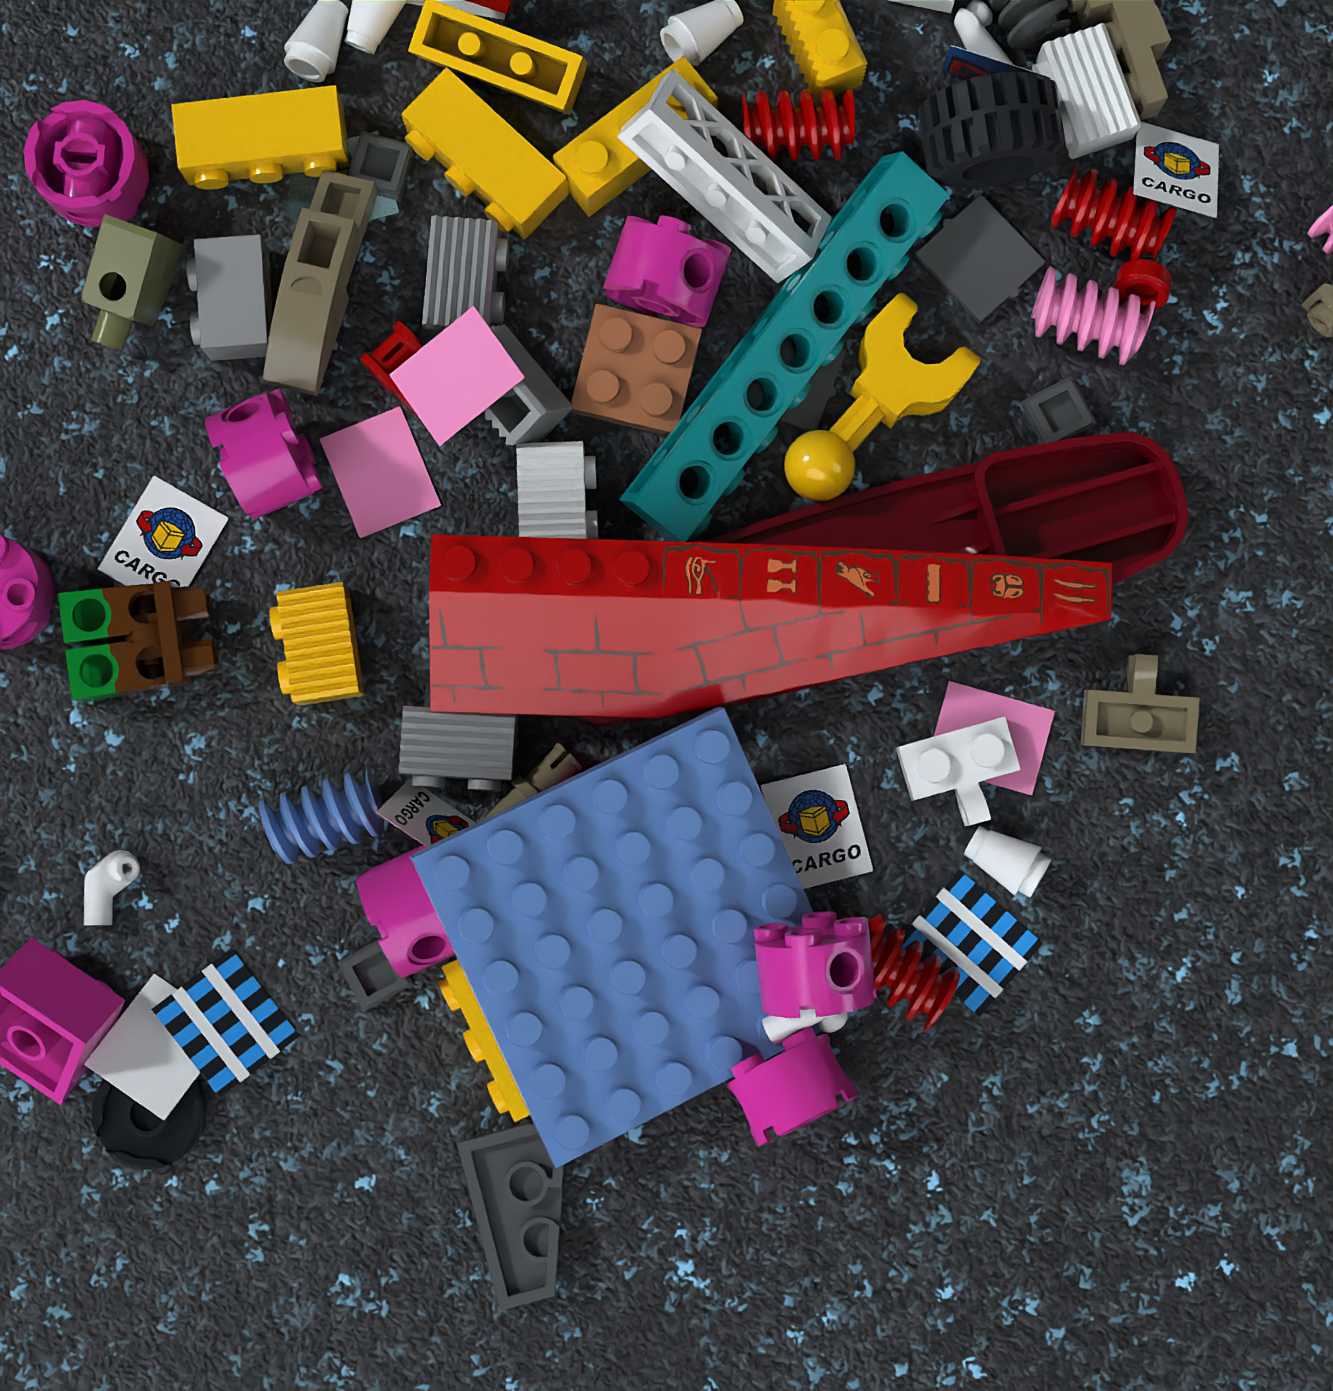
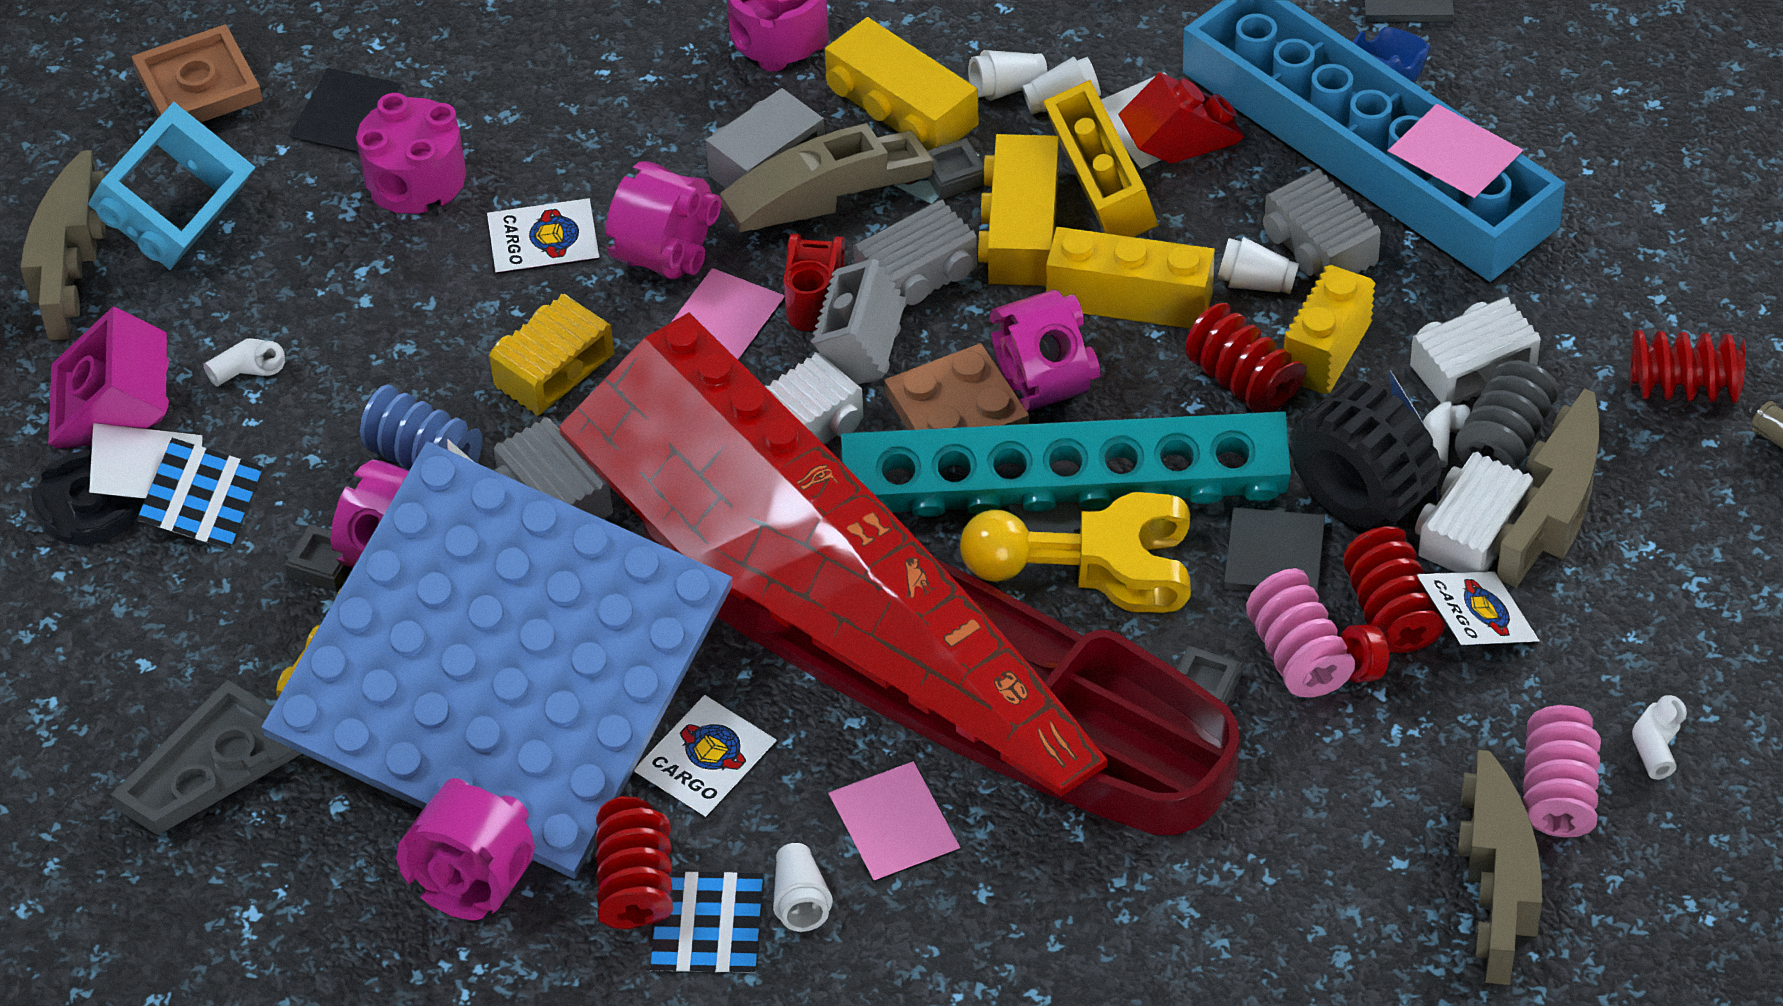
camera: 55 degrees right, 35 degrees down
(131, 261) = (718, 75): olive torso -> none
(154, 637) = (451, 253): reddish brown hips -> none
(456, 375) = (831, 276): bright pink sticker -> none
(724, 186) = (1141, 326): white fence -> none
(782, 1028) = (542, 807): white arm -> none
(815, 965) = (563, 781): dark pink brick -> none
(958, 763) = (848, 803): white plate -> none
(1139, 716) = (1013, 896): dark tan plate -> none

